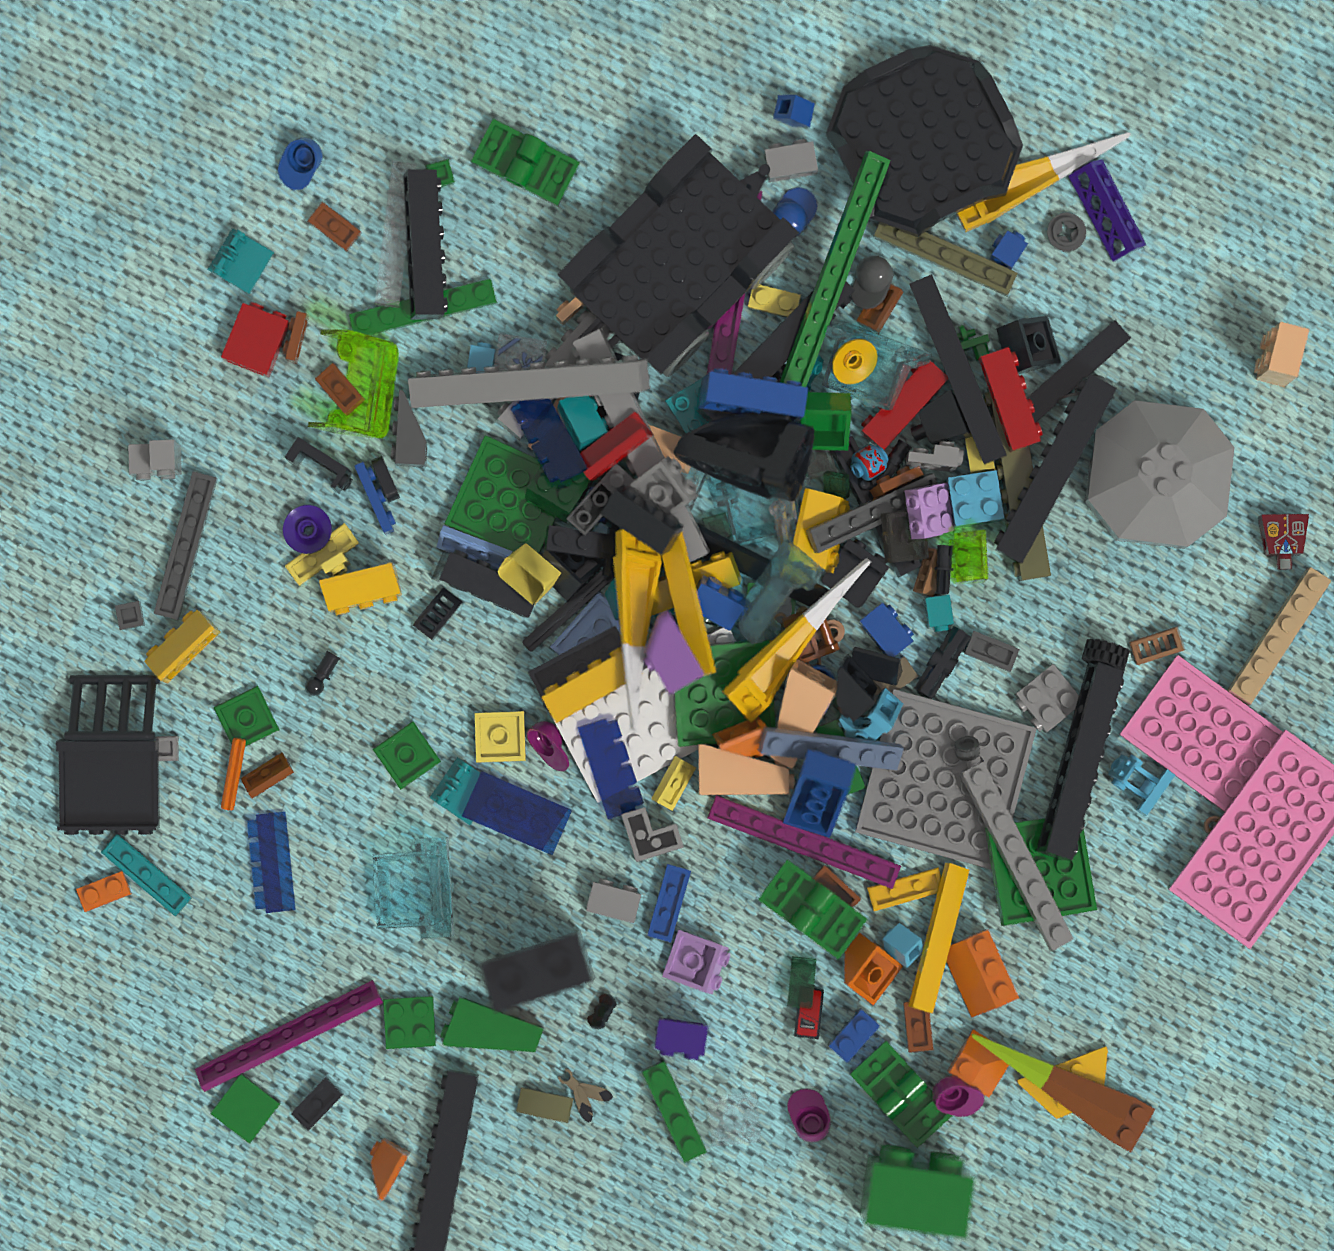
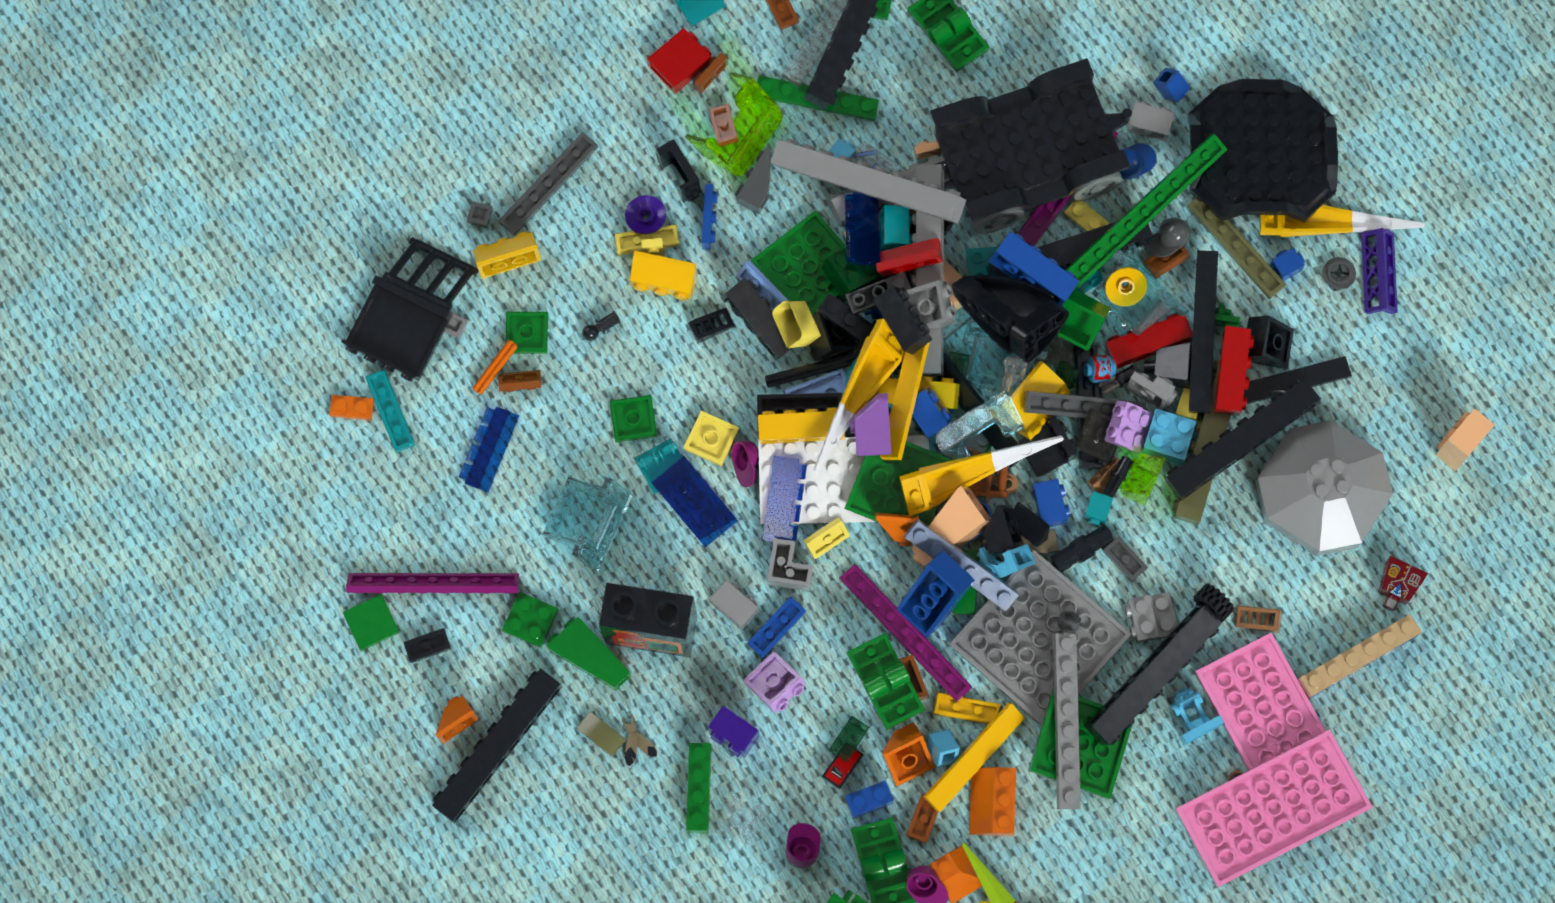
camera: 30 degrees right, 10 degrees down
(157, 458) = (559, 109): light grey brick -> none
(385, 479) = (723, 206): black beam -> none
(602, 1011) = (682, 685): black piece -> none
(736, 774) = (879, 554): light nougat slope -> none
(903, 477) = (1118, 393): dark orange plate -> none

